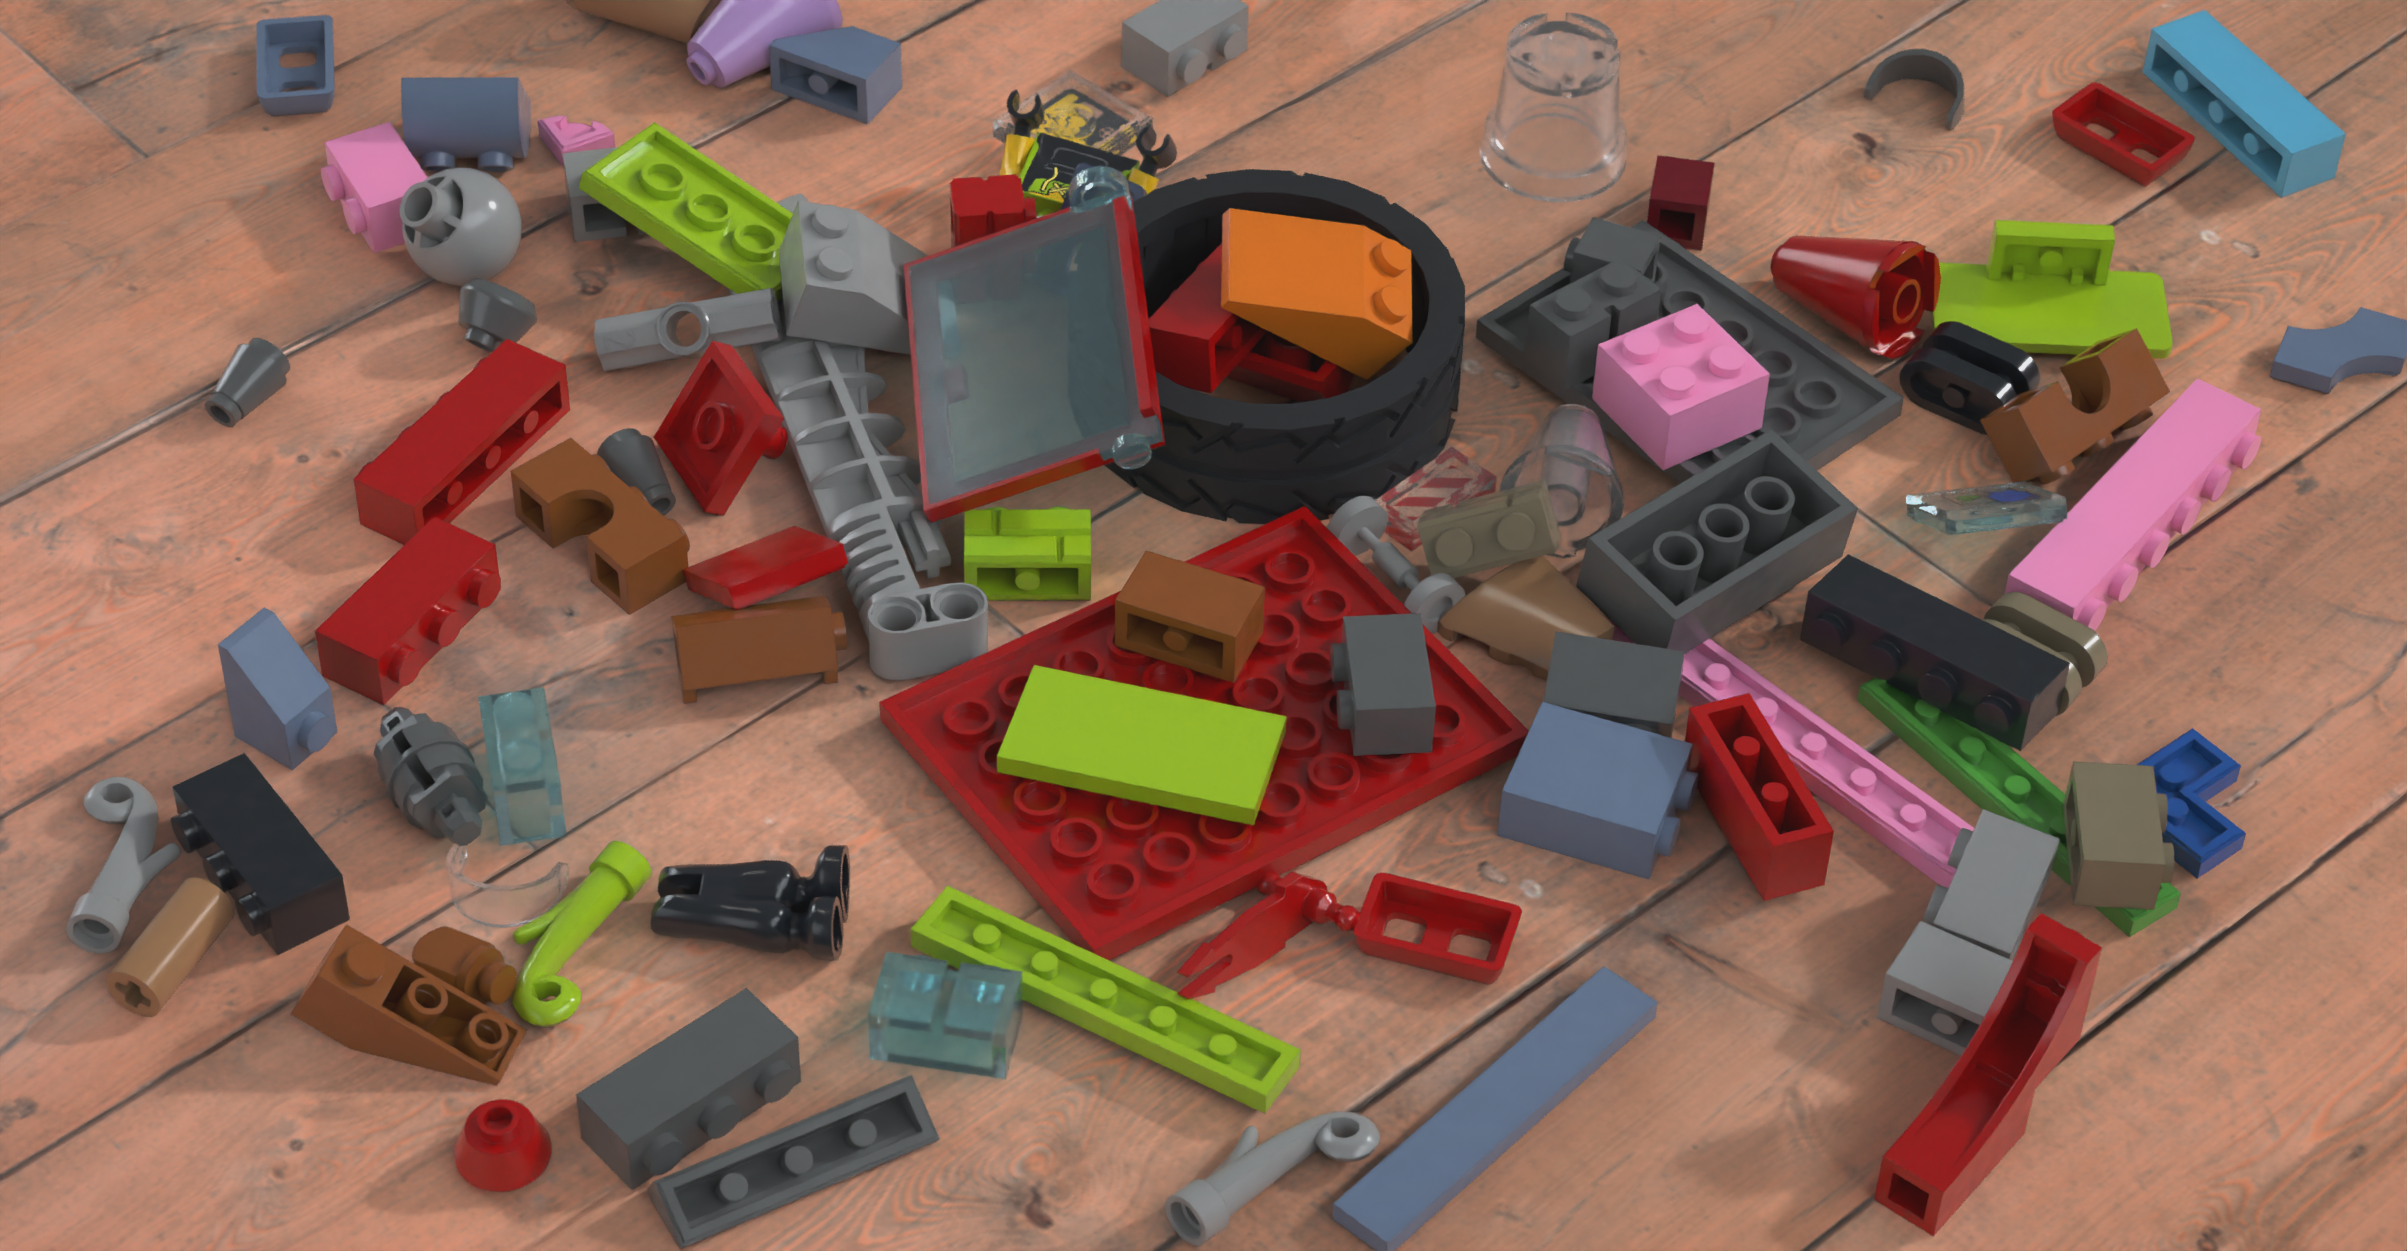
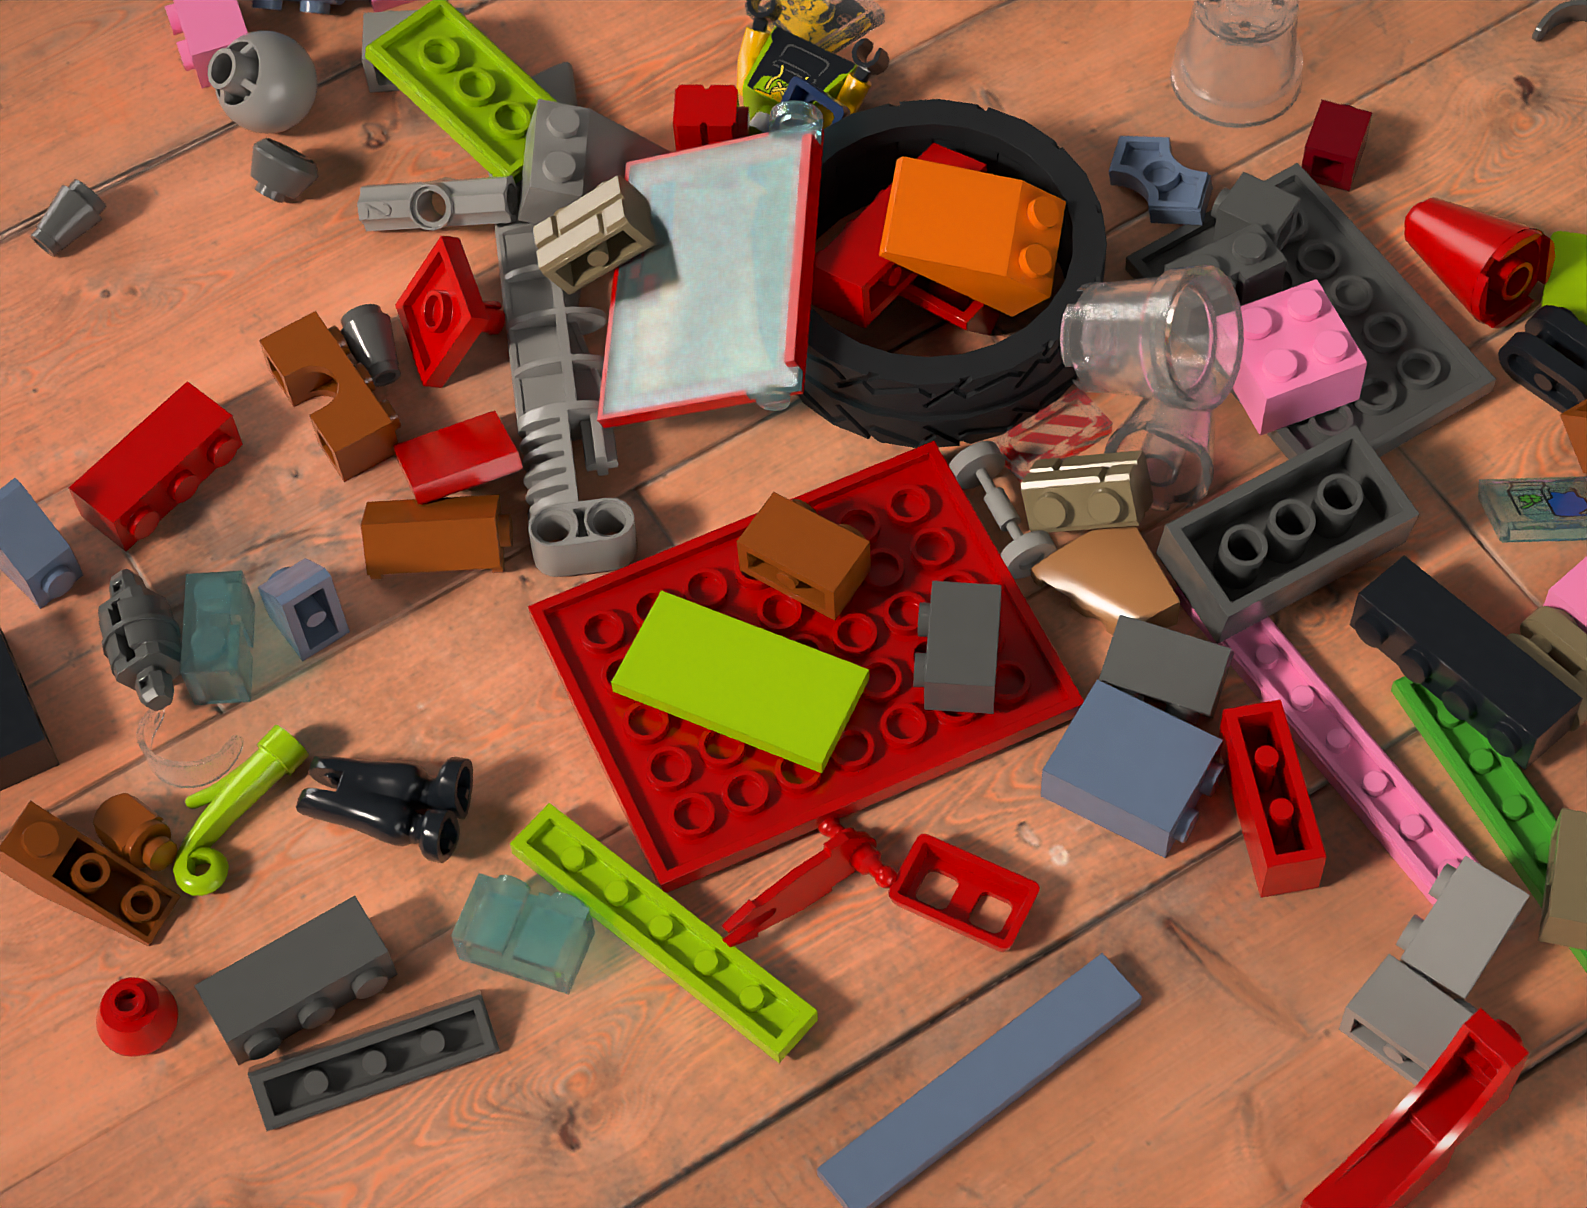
camera: 15 degrees right, 15 degrees up
(463, 442) = (231, 299): red brick -> none
(620, 724) = (304, 607): none -> sand blue slope
(885, 330) = (594, 235): none -> dark tan brick
(1029, 553) = (685, 463): lime brick -> none
(1205, 1205) = (754, 1119): light grey plant -> none
(1505, 252) = (1171, 189): none -> sand blue tile
(1540, 362) = (1157, 337): none -> clear piece

